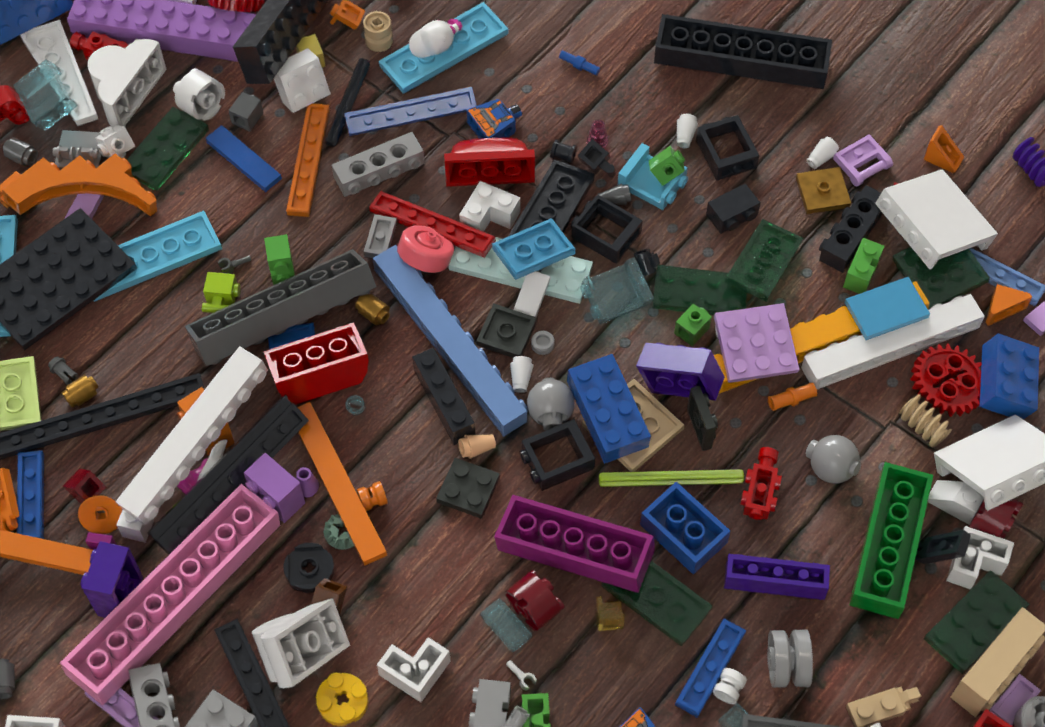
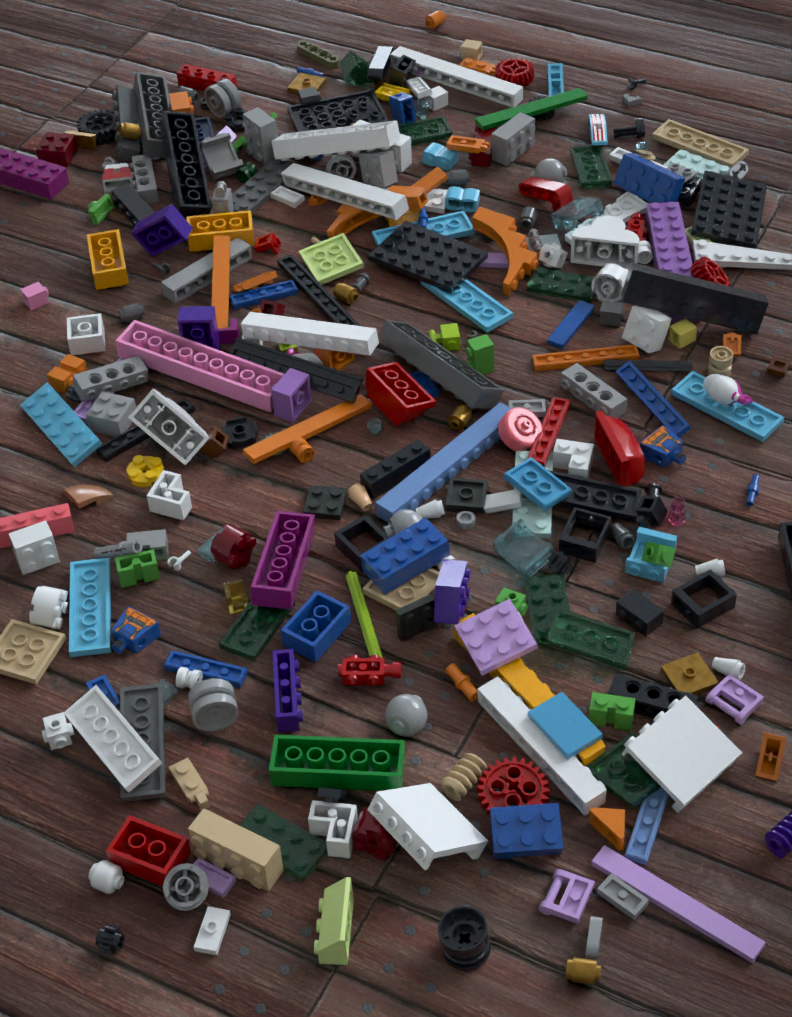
camera: 80 degrees right, 15 degrees down
(308, 482) = (303, 411): medium lavender cone -> none

